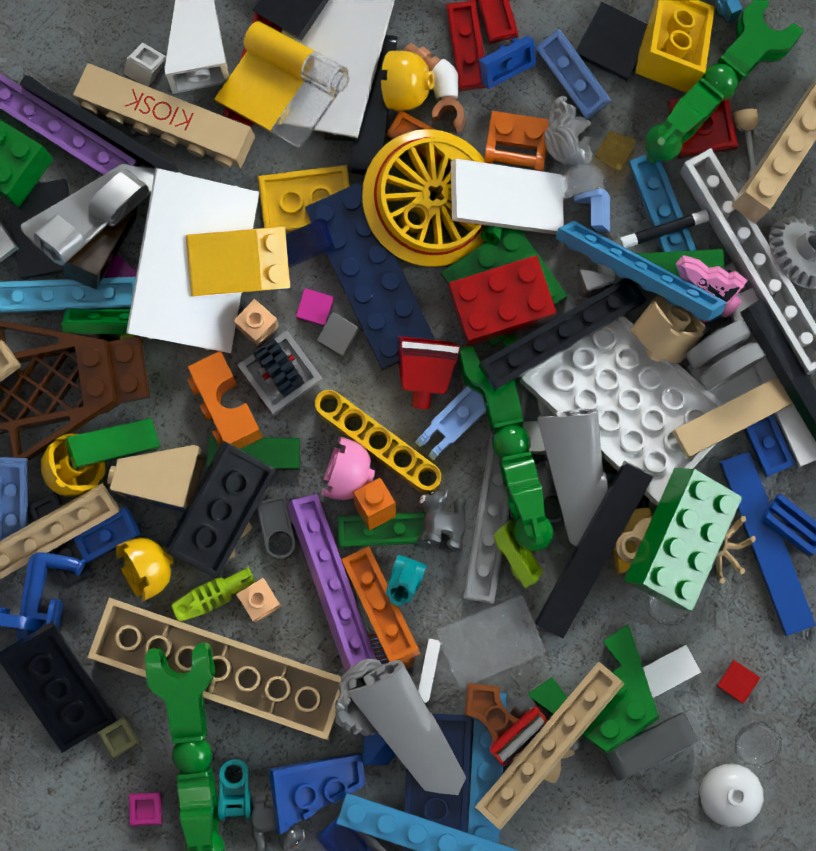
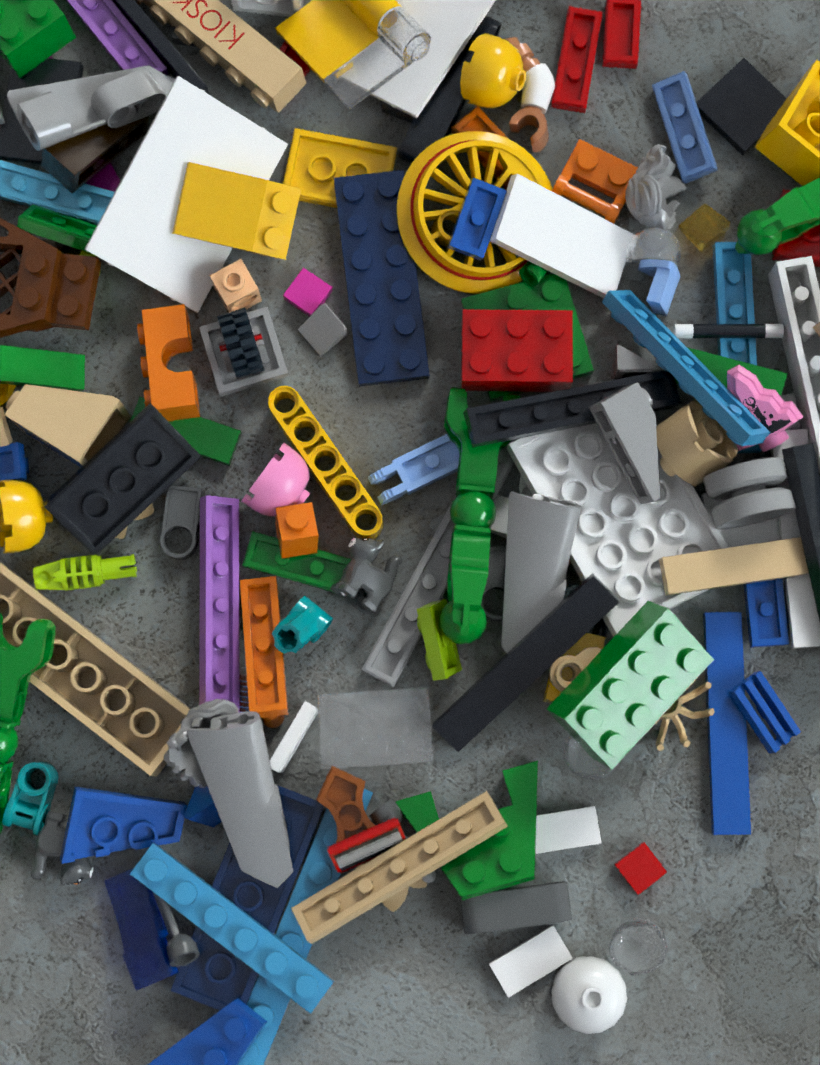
camera: 20 degrees right, 0 degrees up
(259, 600) = (132, 595): light nougat brick -> none
(308, 242) = (322, 217): clear blue tile -> none
(425, 367) = (406, 397): red torso -> none
(435, 205) = (477, 219): none -> blue plate
(507, 61) = (614, 89): blue plate -> none
(616, 337) = (631, 433): none -> light grey slope
(676, 784) = (530, 960): none -> white tile

